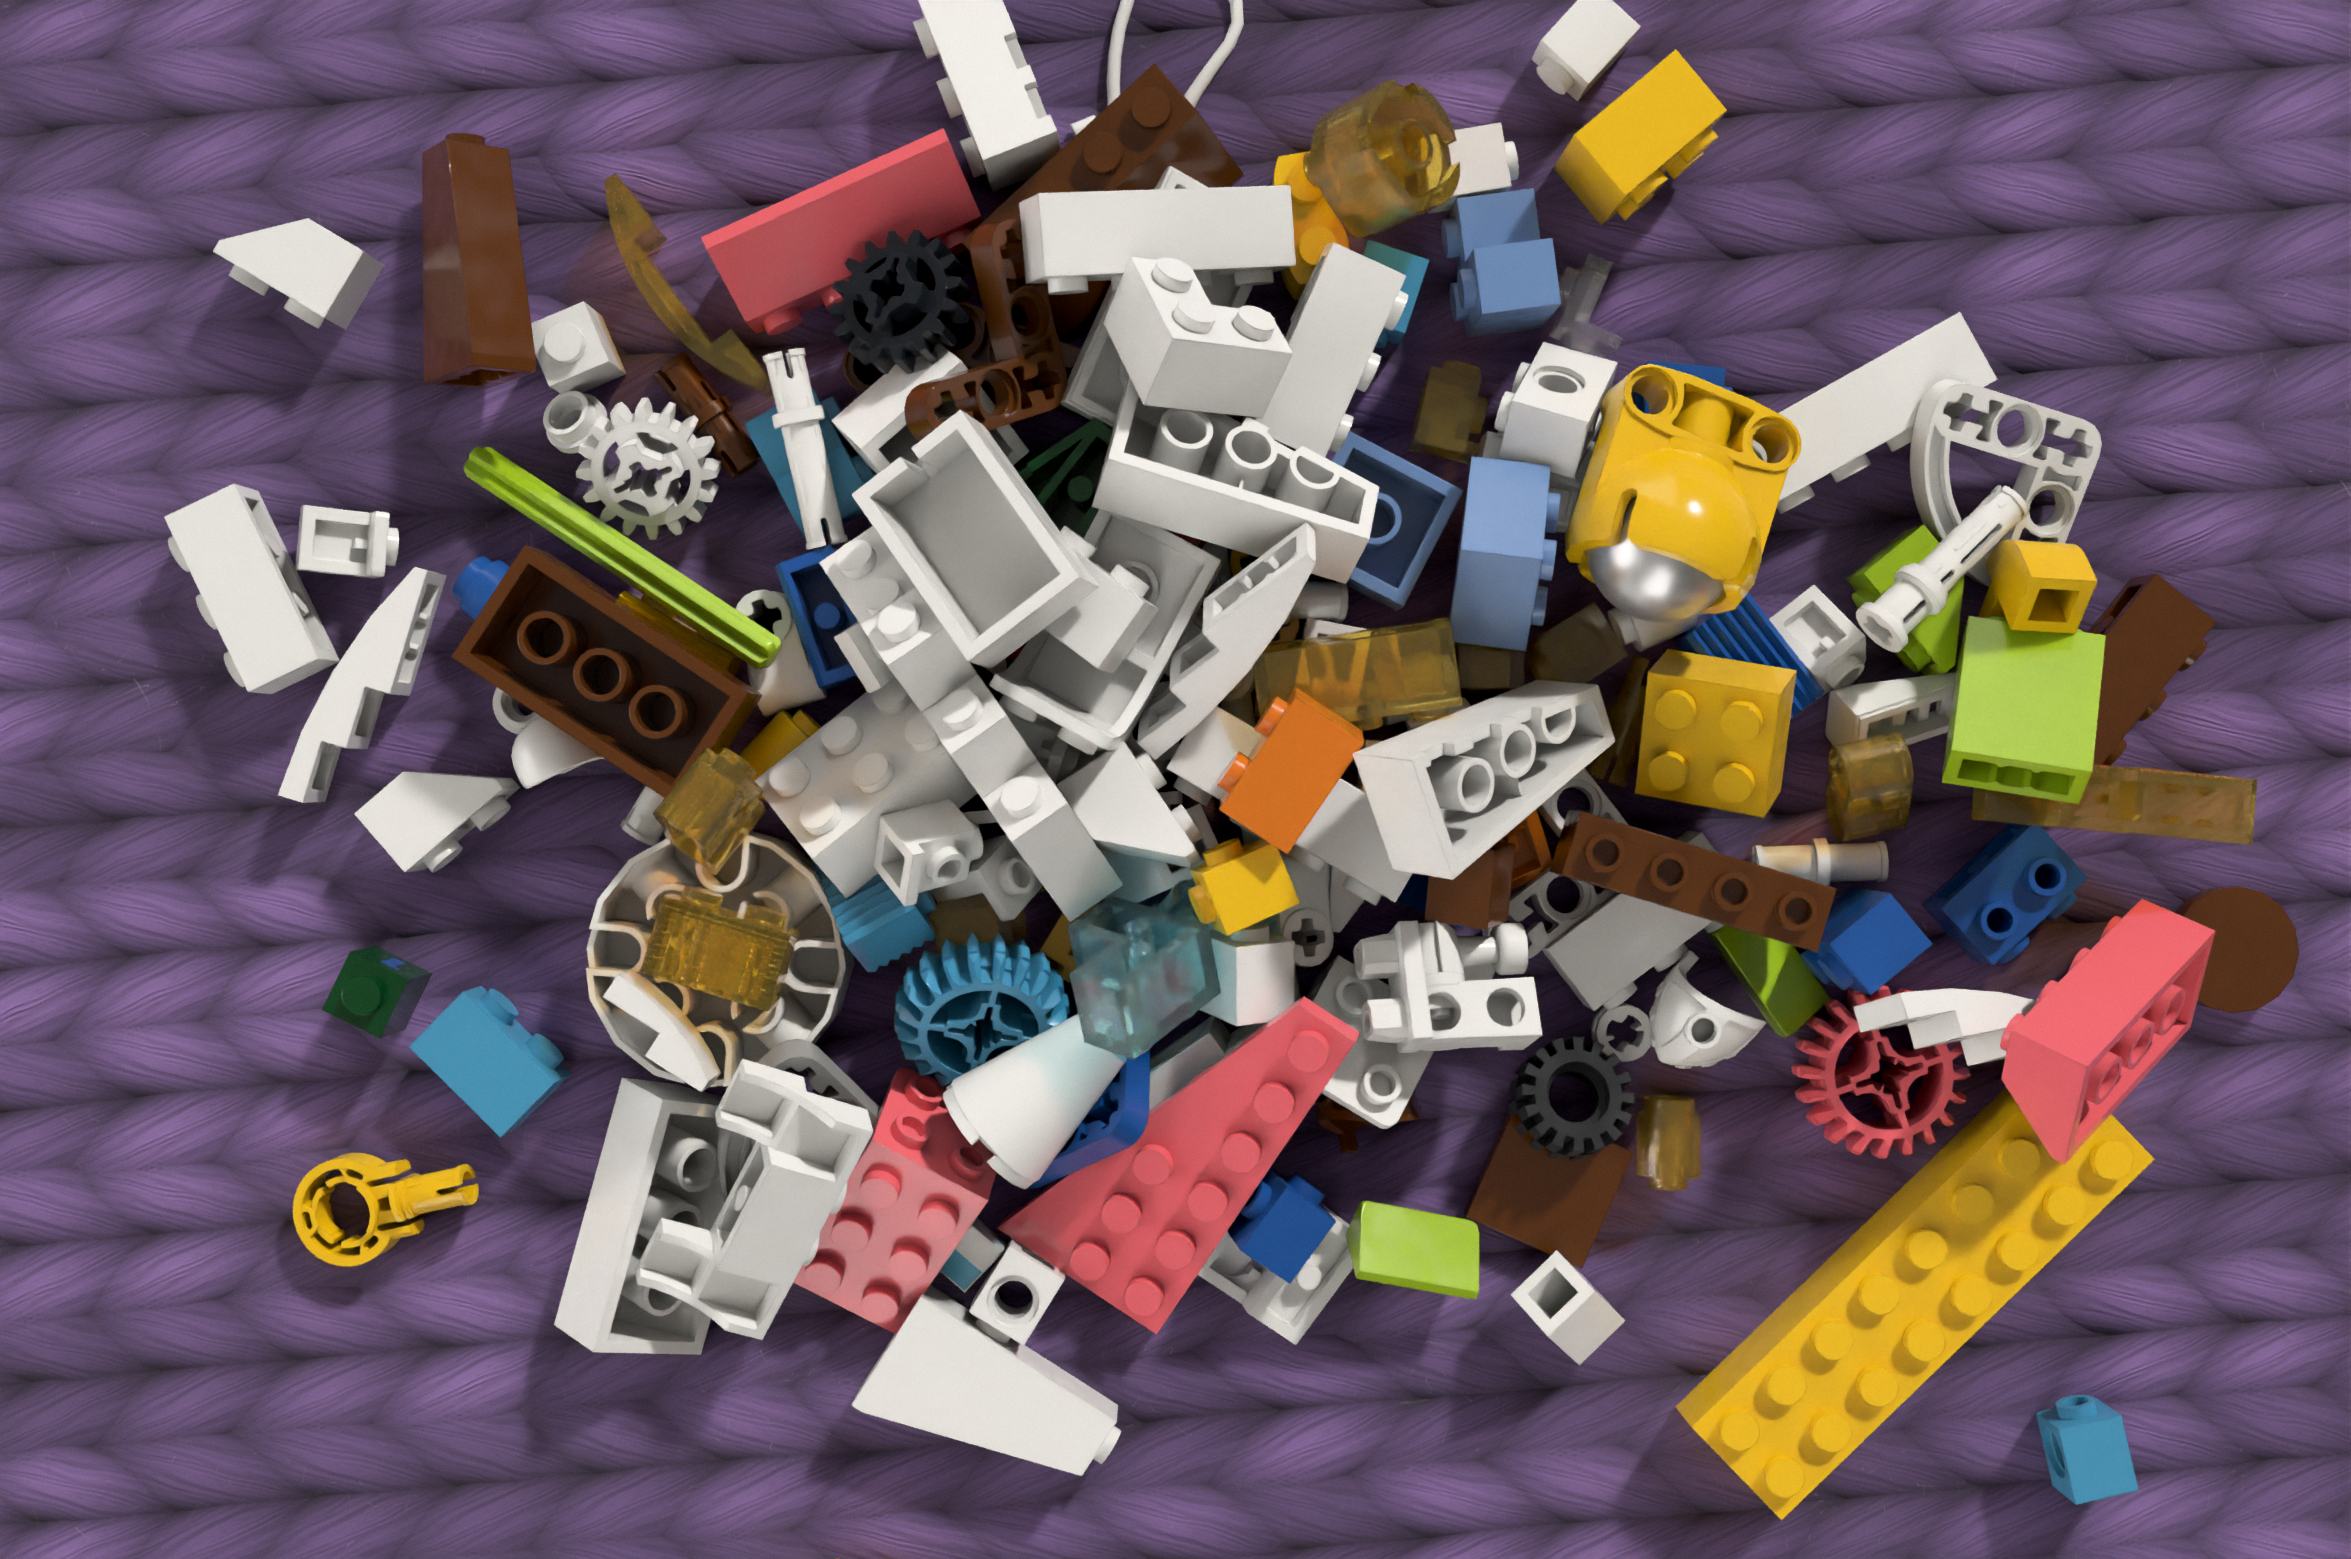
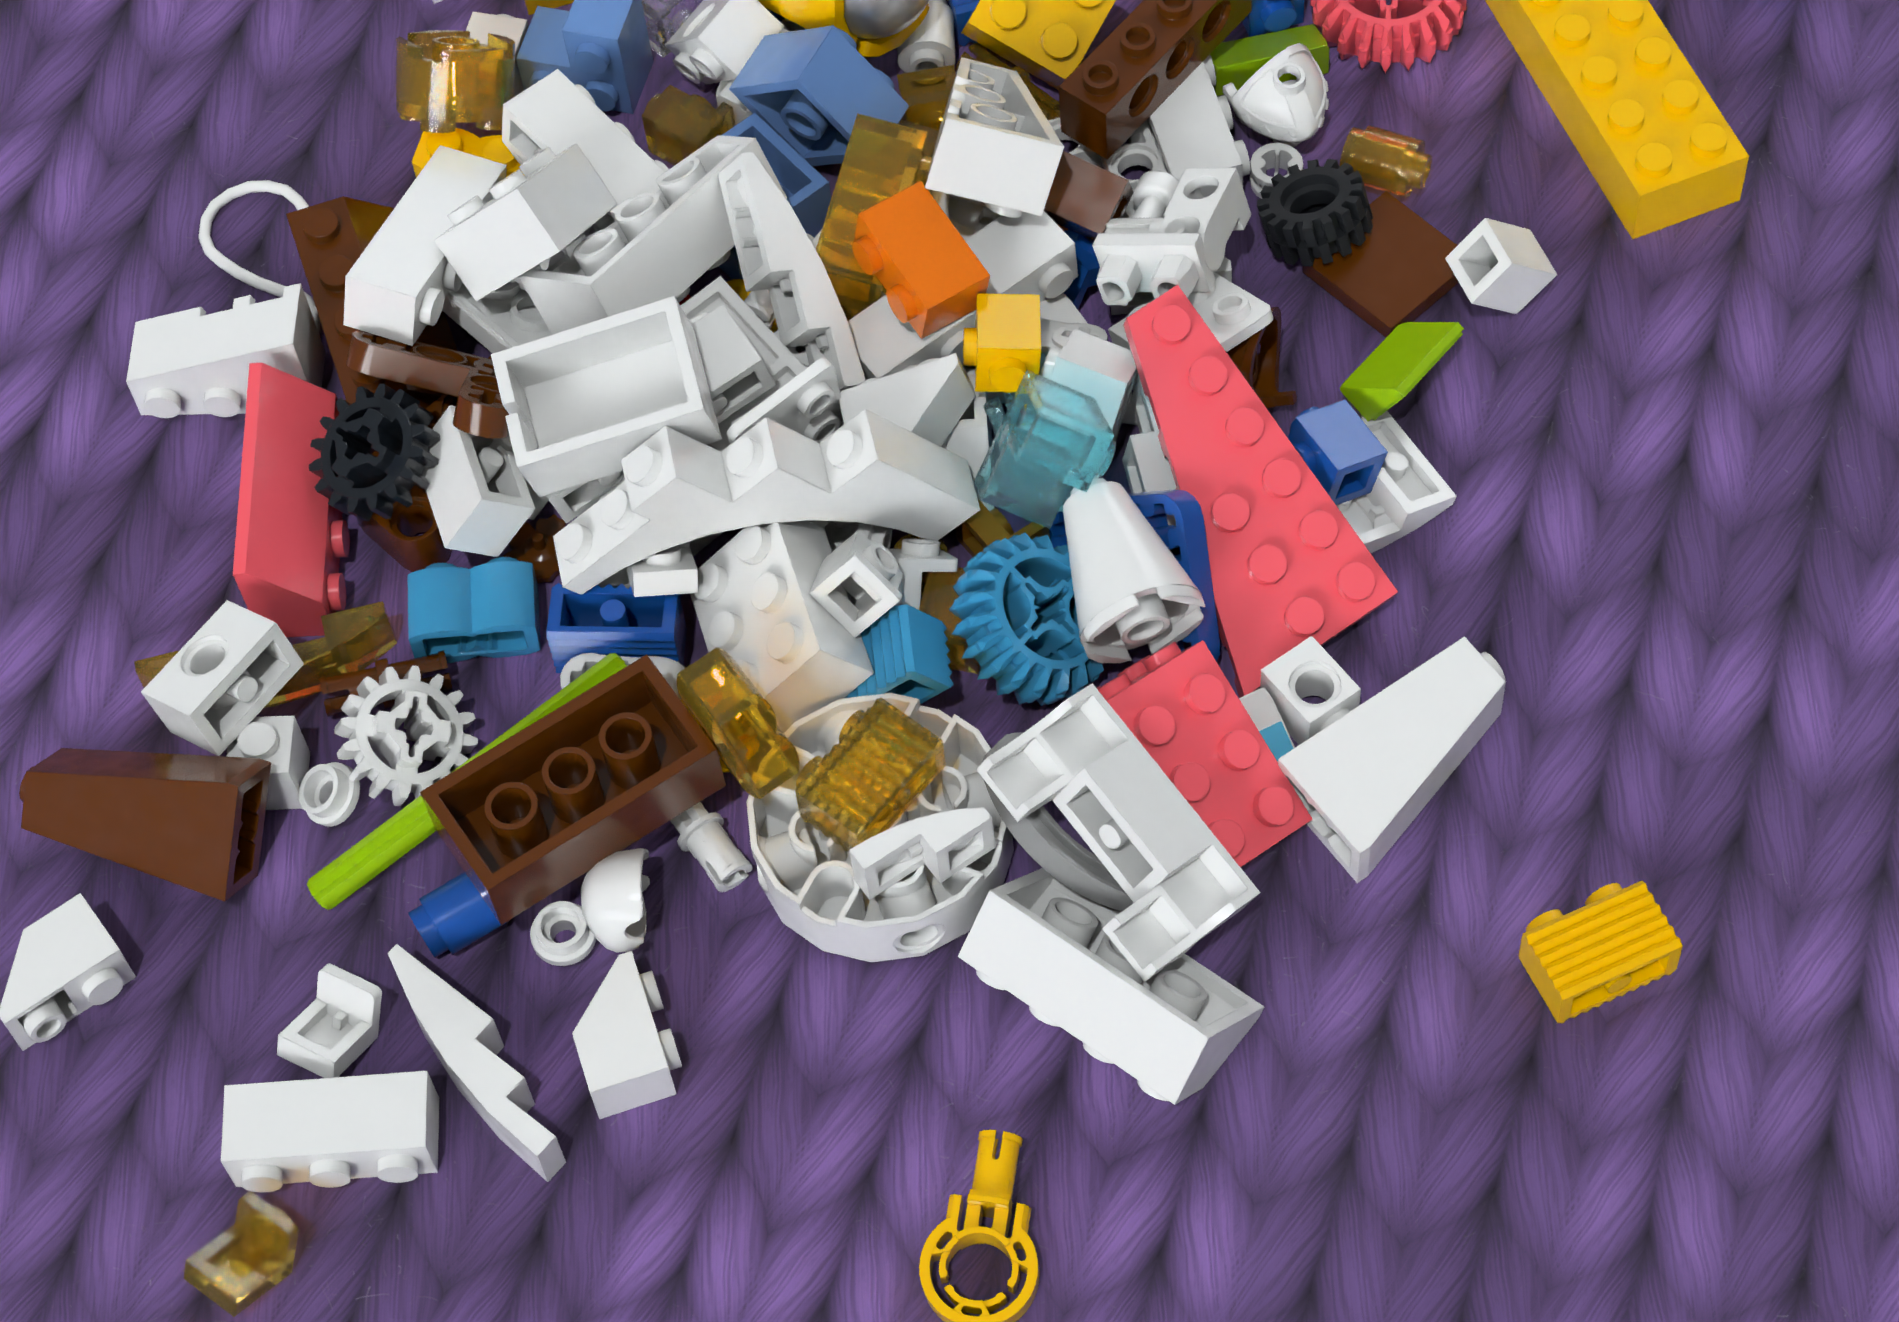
camera: 60 degrees left, 30 degrees down
(107, 573) = (245, 1257): none -> clear yellow bracket
(376, 991) = (772, 1152): dark green brick -> none
(491, 1058) = (888, 1076): dark azure brick -> none
(626, 305) = (222, 677): none -> white brick
(805, 447) = (442, 577): white pin -> none

